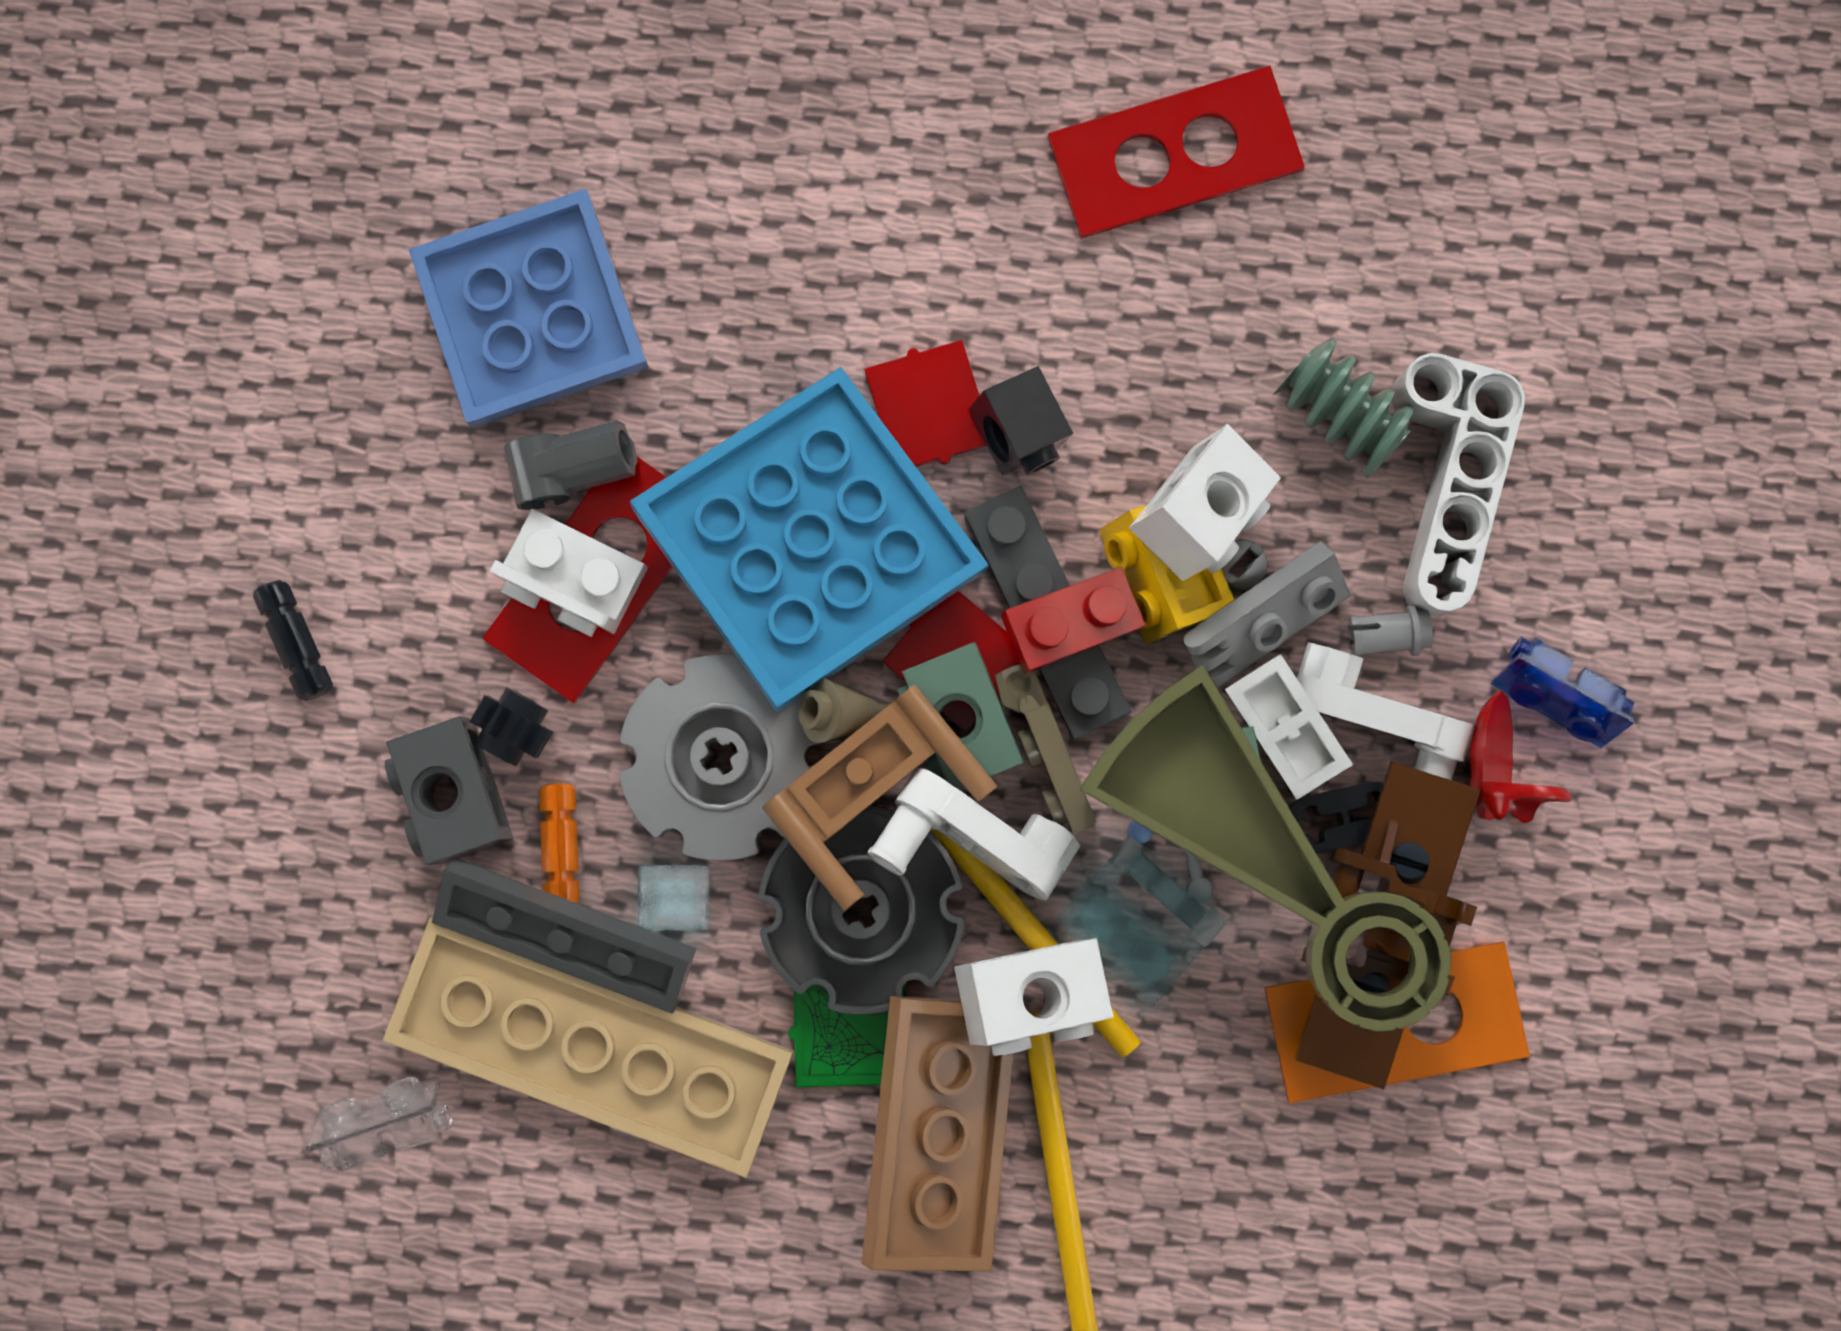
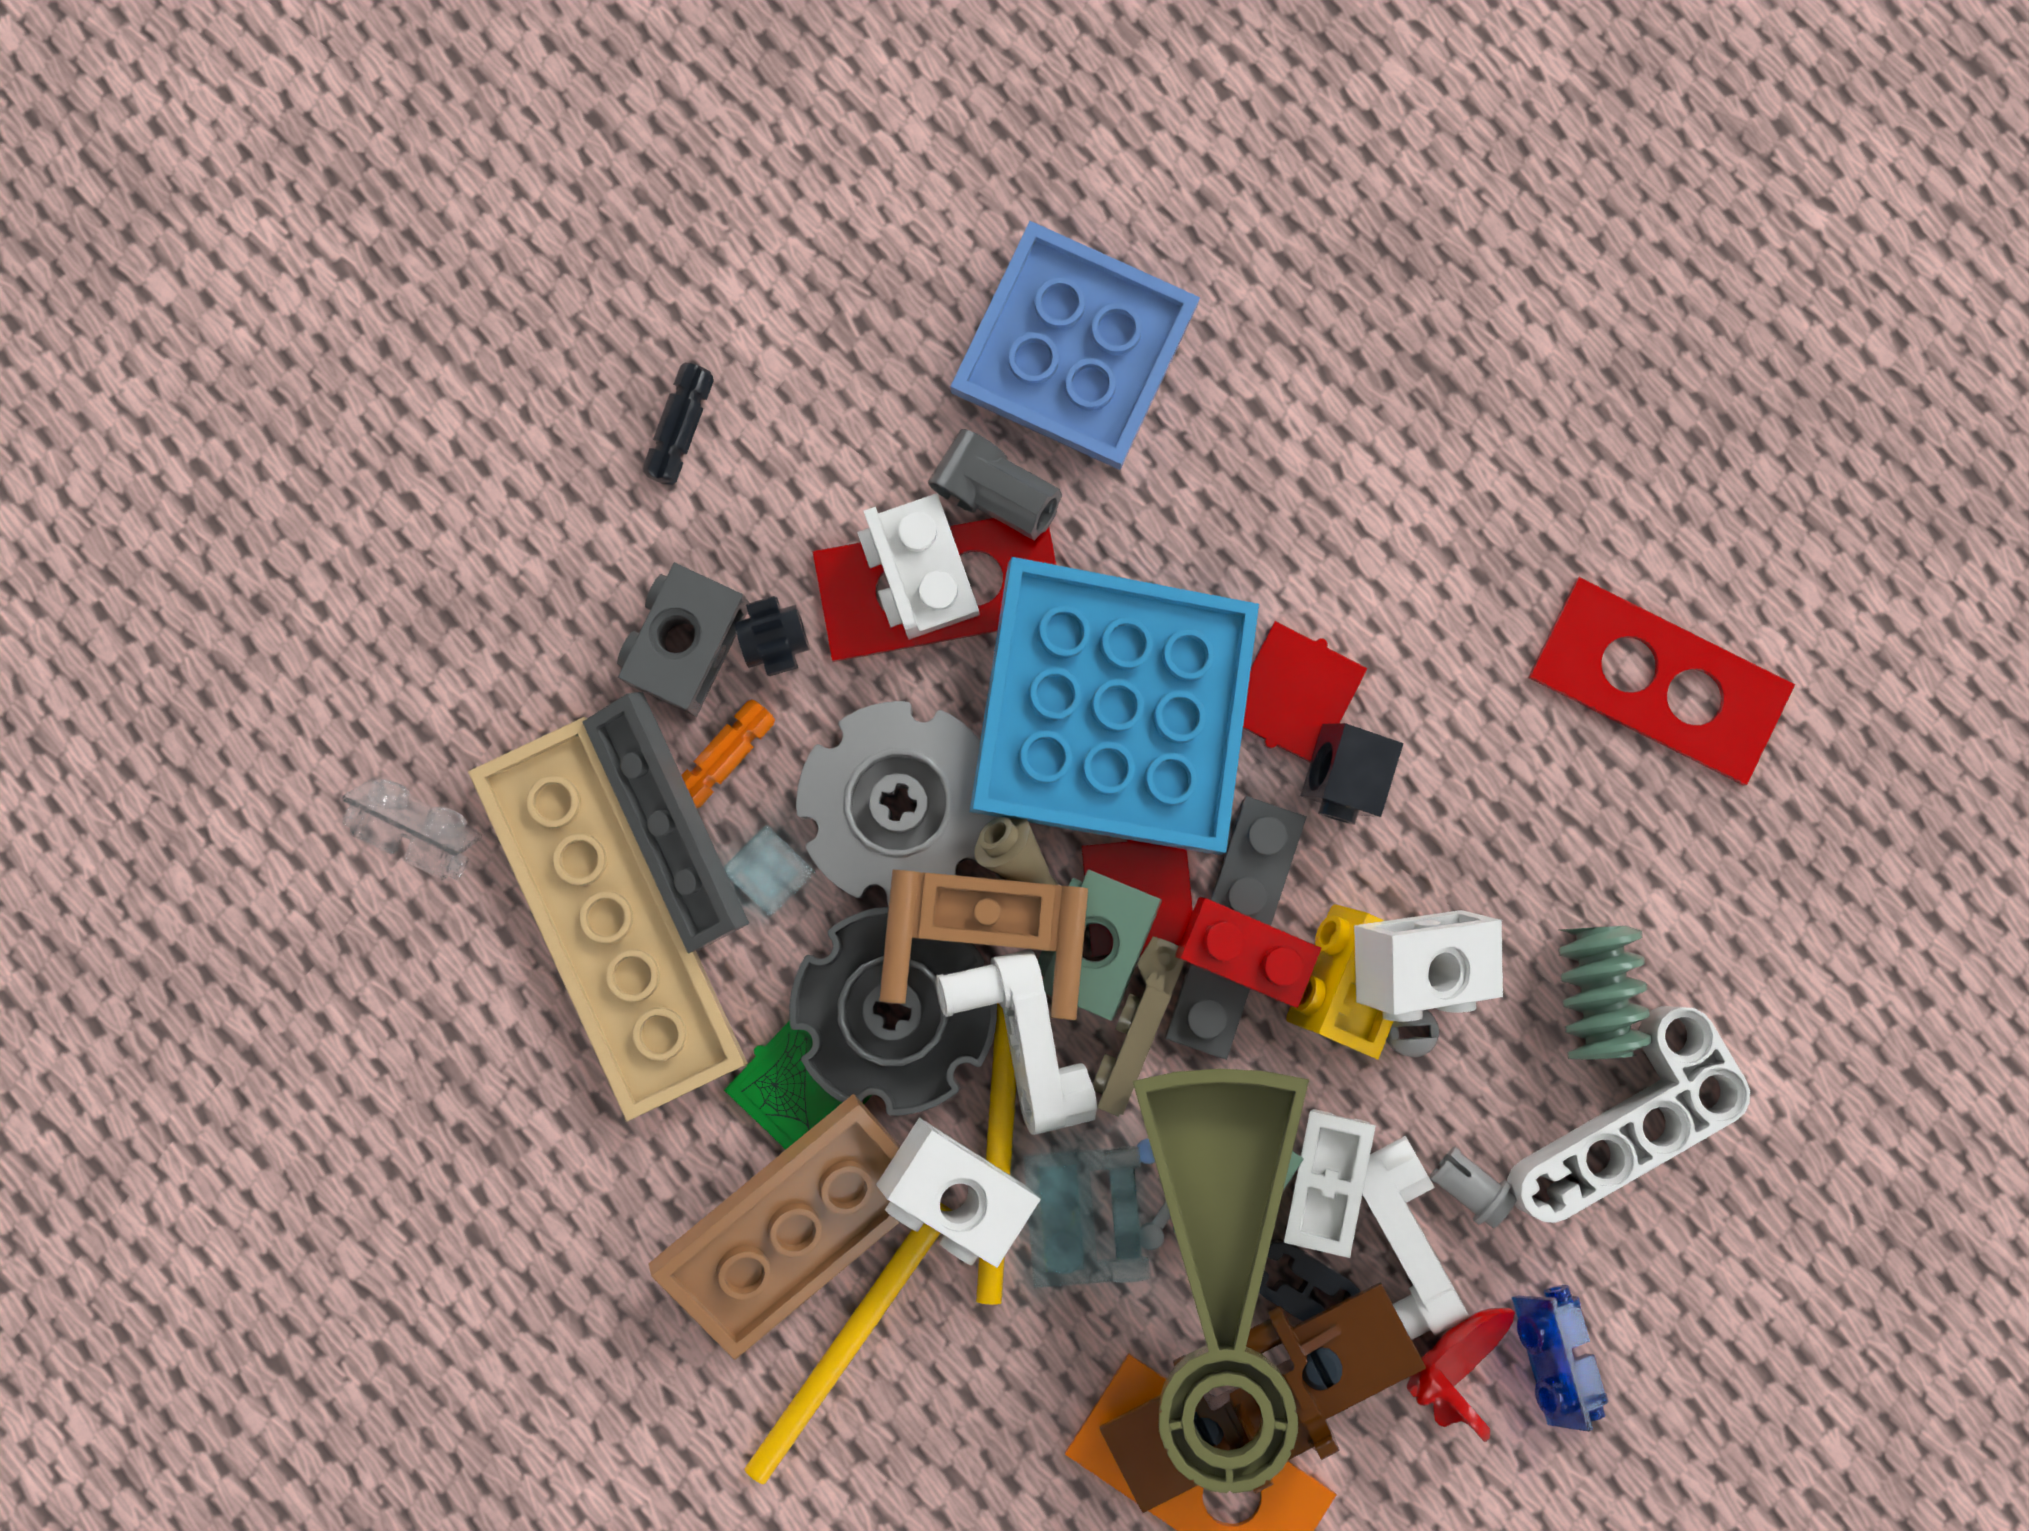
camera: 40 degrees right, 0 degrees up
(1268, 614) = (1395, 1086): light grey hinge -> none

